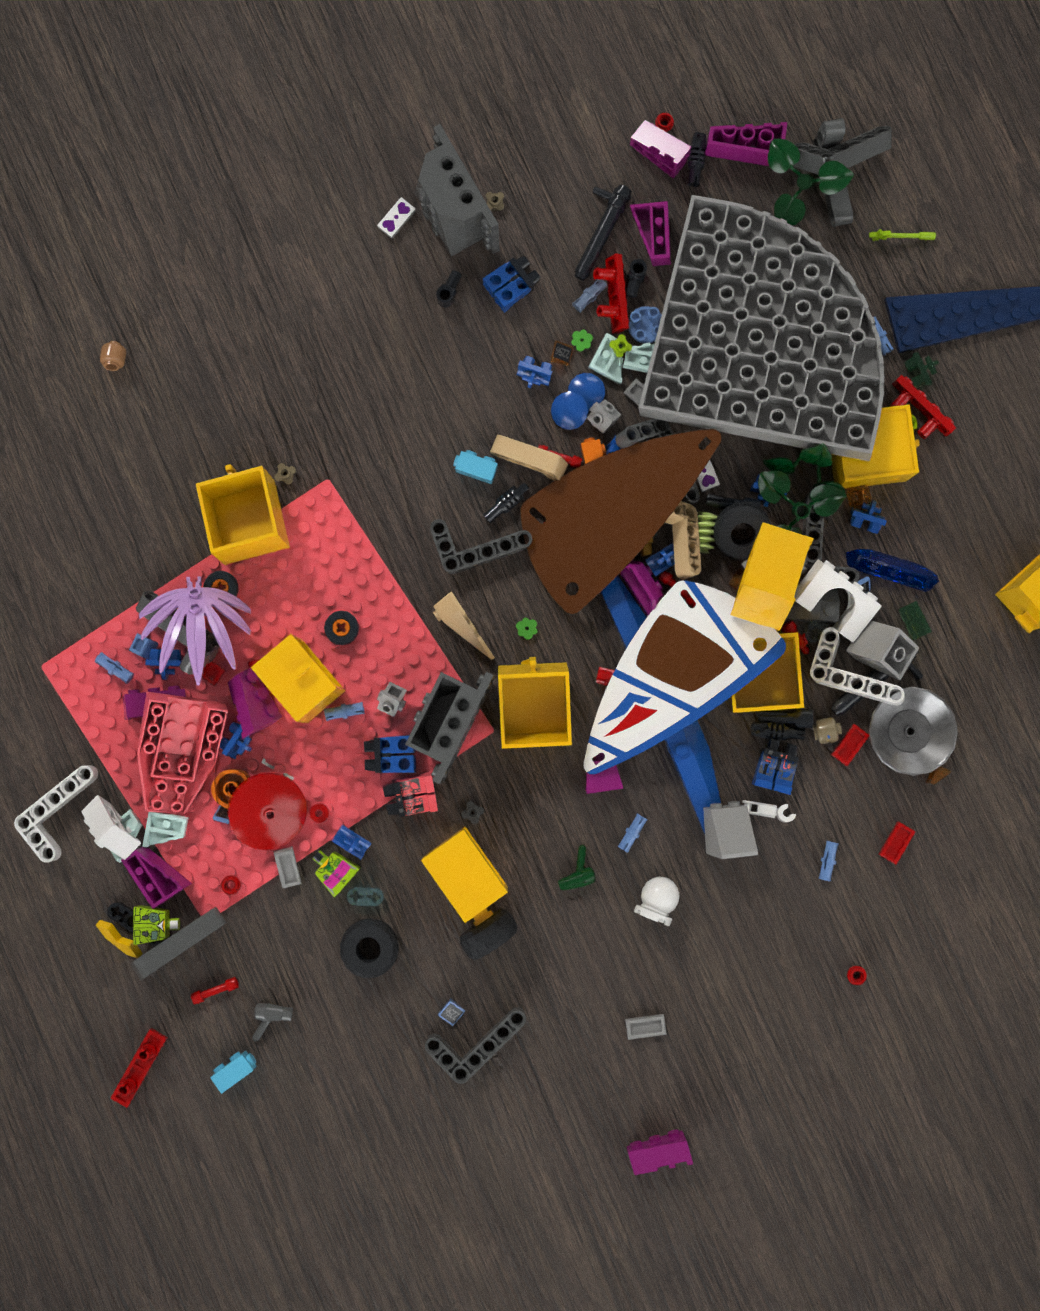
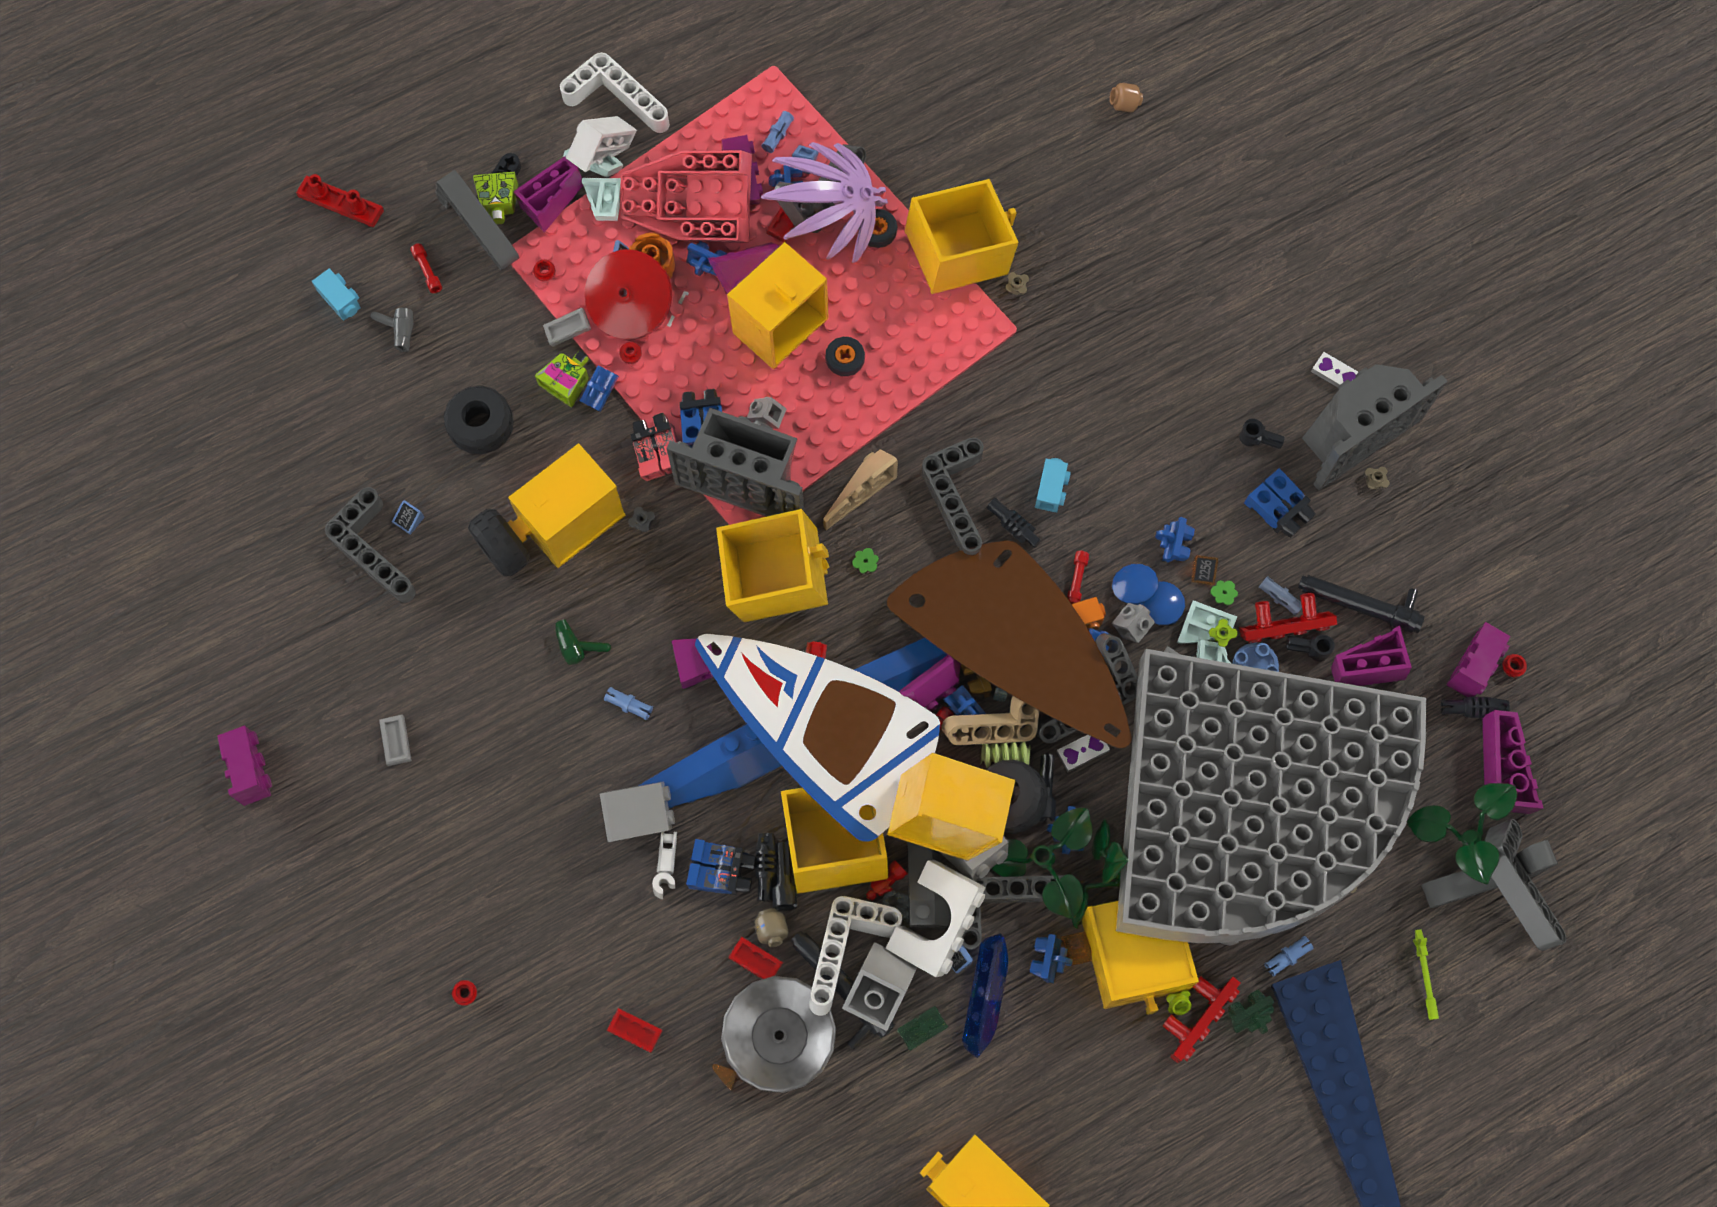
camera: 85 degrees right, 15 degrees down
(111, 934) = (481, 163): yellow tile -> none
(344, 711) = (749, 368): medium blue pin -> none
(365, 901) = (533, 413): clear light blue beam -> none
(523, 454) = (1070, 543): tan beam -> none
(658, 898) = (548, 736): white tile -> none
(828, 861) = (607, 945): medium blue pin -> none

